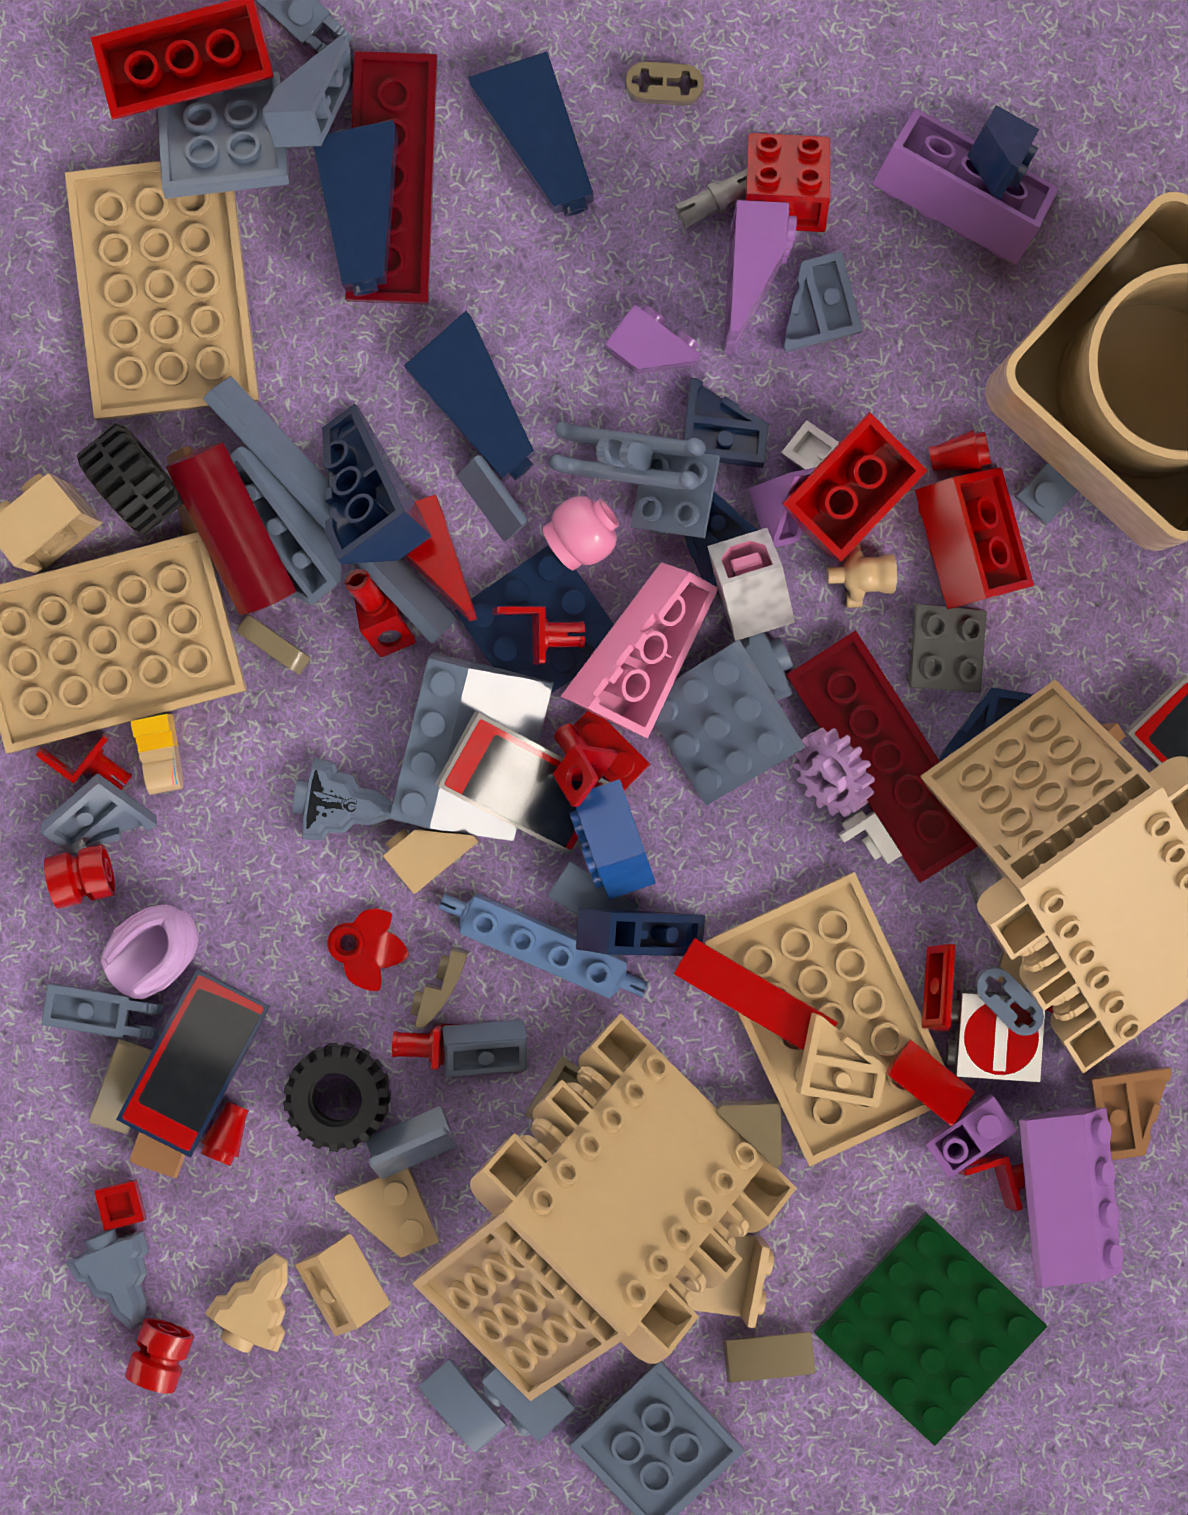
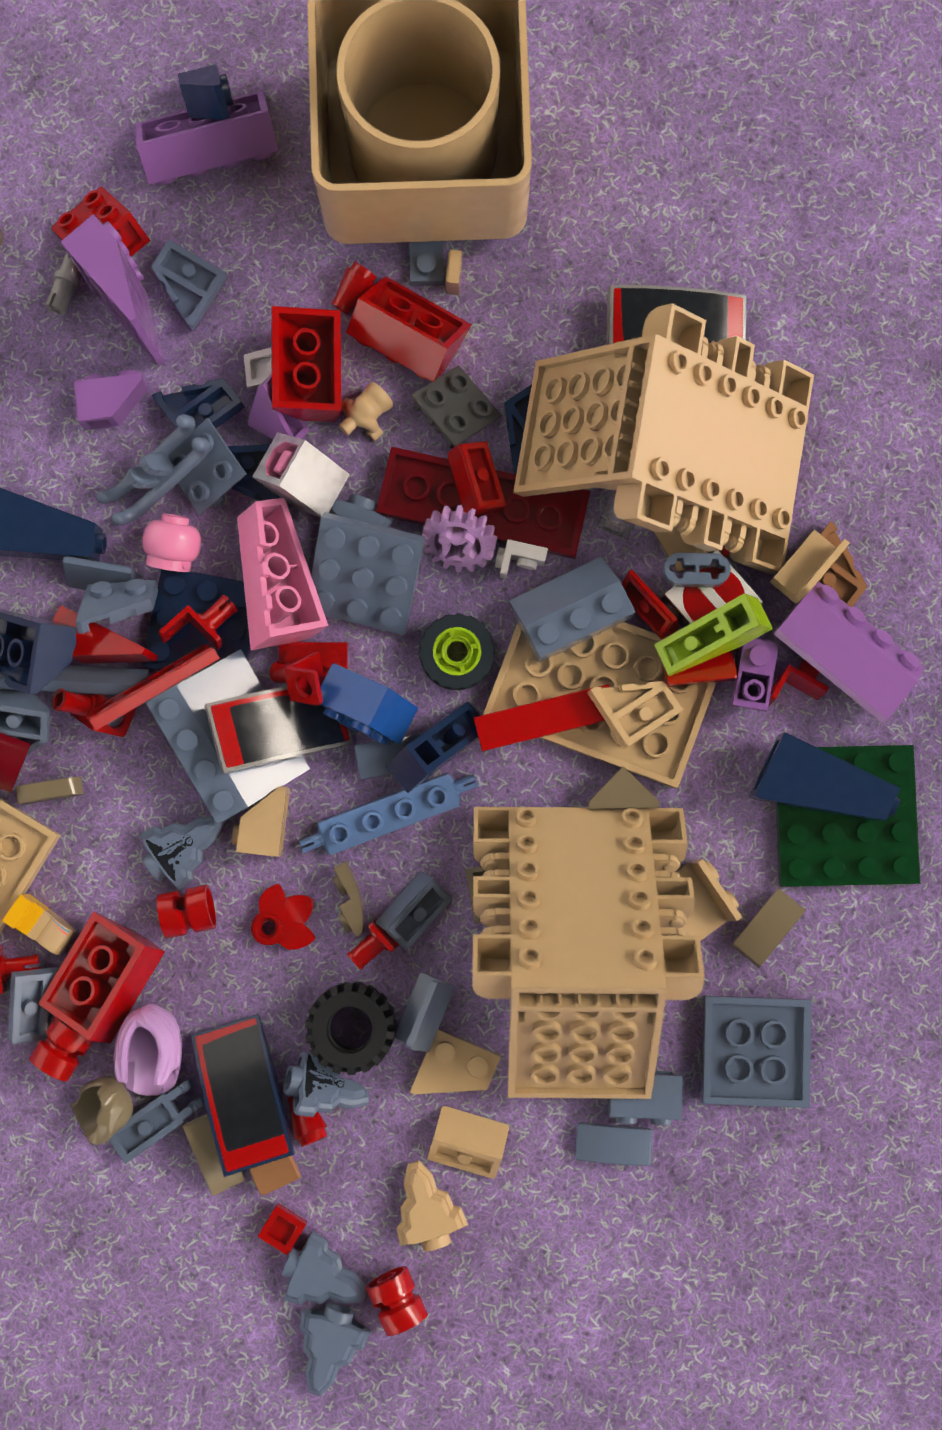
camera: 40 degrees left, 5 degrees down
(65, 961) = (102, 1109): none -> dark tan hair
(70, 1335) = (329, 1343): none -> sand blue rock
(167, 850) = (101, 978): none -> red slope
(261, 1121) = (320, 1089): none -> sand blue rock
(297, 877) = (182, 912): none -> red wheel
(447, 646) = (152, 686): none -> red tile
(485, 539) = (115, 601): none -> sand blue wing
(742, 891) = (461, 630): none -> black wheel
(870, 926) = (572, 608): none -> sand blue slope
(900, 731) = (476, 477): none -> red slope
(930, 1275) = (815, 780): none -> dark blue slope
(967, 1072) = (714, 634): none -> lime slope
(1063, 526) = (453, 272): none -> tan tile
(1109, 1090) = (807, 566): none -> tan panel

